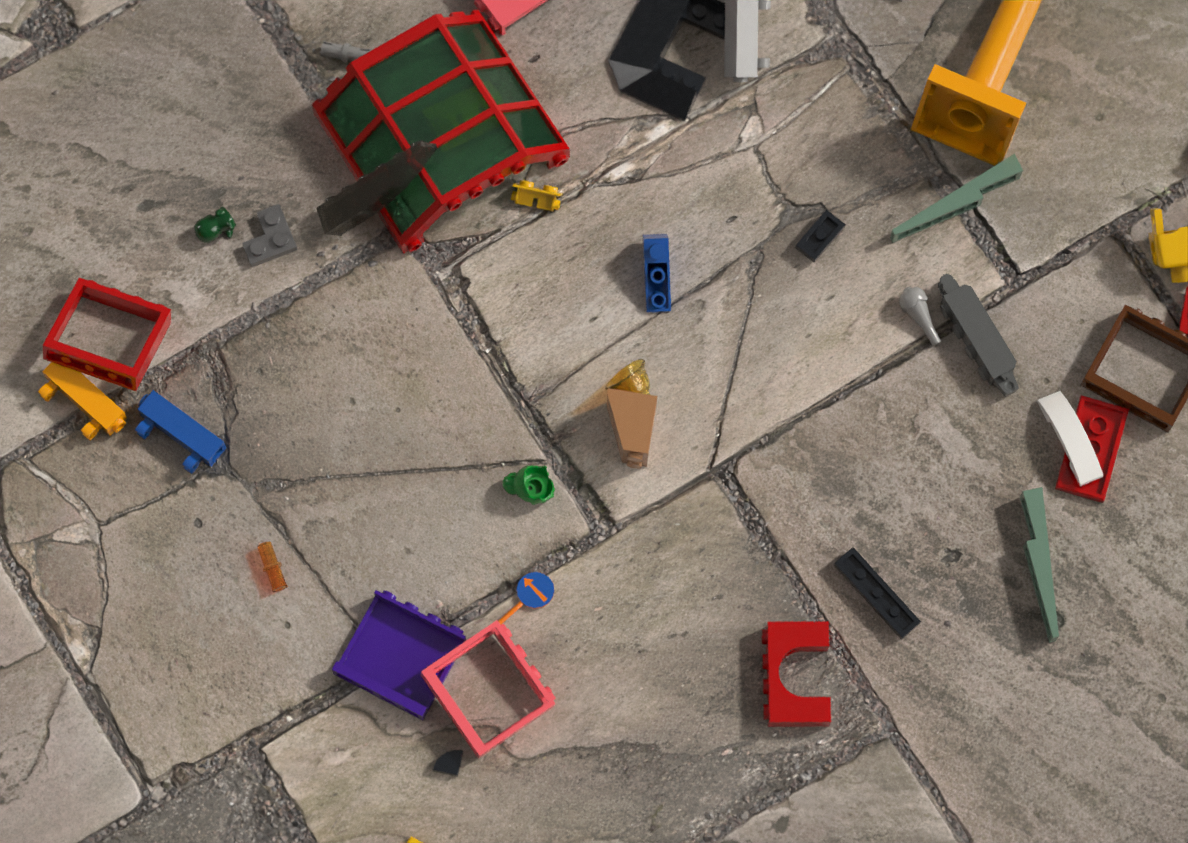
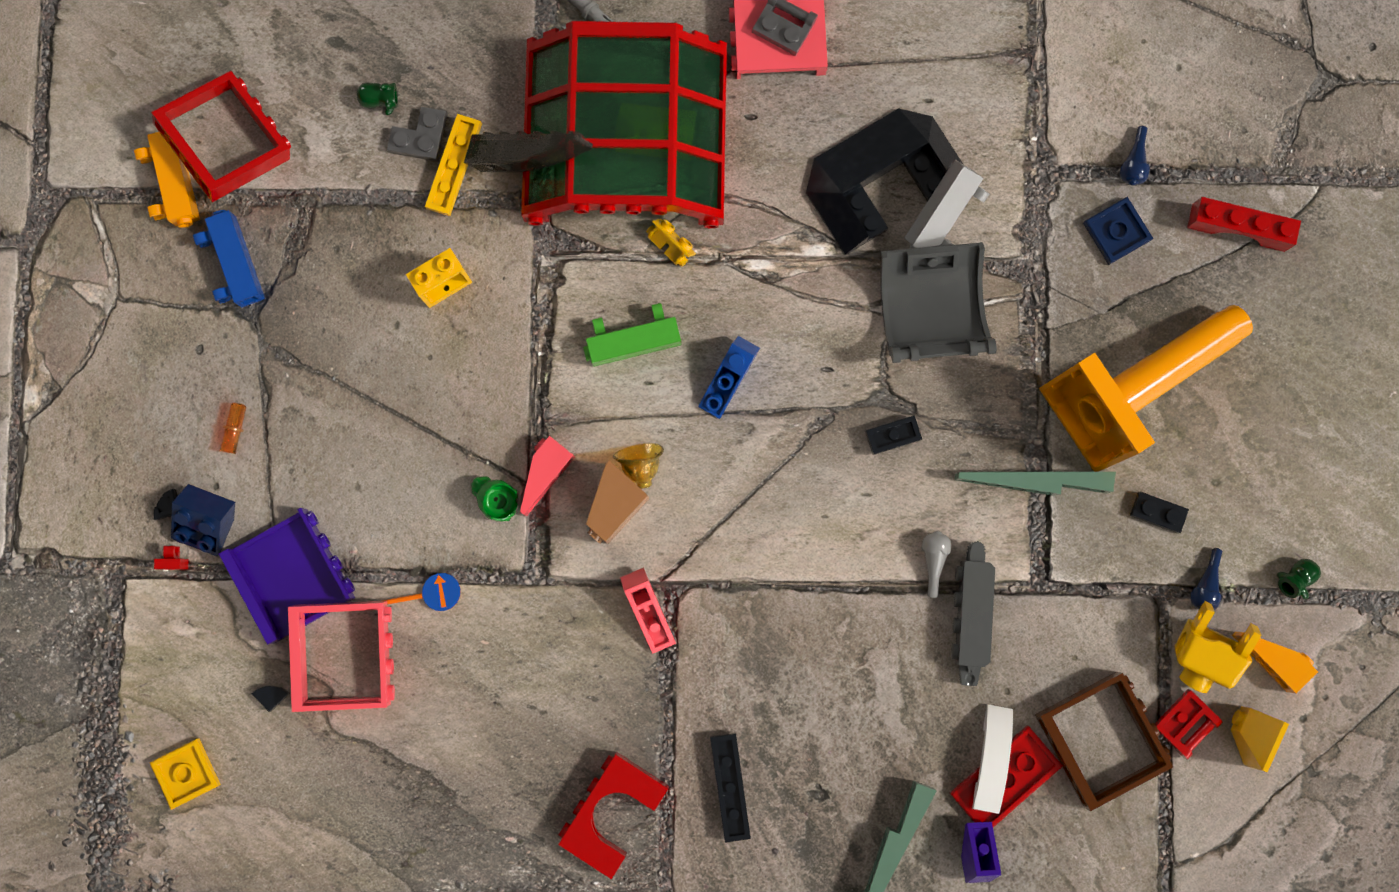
camera: 35 degrees right, 10 degrees up
(257, 665) = (164, 506): none -> black tile
(293, 705) = (171, 560): none -> red tile
(296, 655) = (201, 519): none -> dark blue slope
(315, 243) = (452, 166): none -> yellow plate
(371, 326) = (437, 273): none -> yellow window
(556, 435) = (546, 467): none -> coral slope
(559, 291) = (633, 341): none -> bright green brick
(715, 495) = (647, 610): none -> coral slope
(782, 111) = (934, 302): none -> dark grey hinge
(1070, 167) = (1159, 512): none -> black plate
(1109, 516) = (979, 853): none -> dark purple slope
(1146, 197) = (1208, 586): none -> dark blue piece

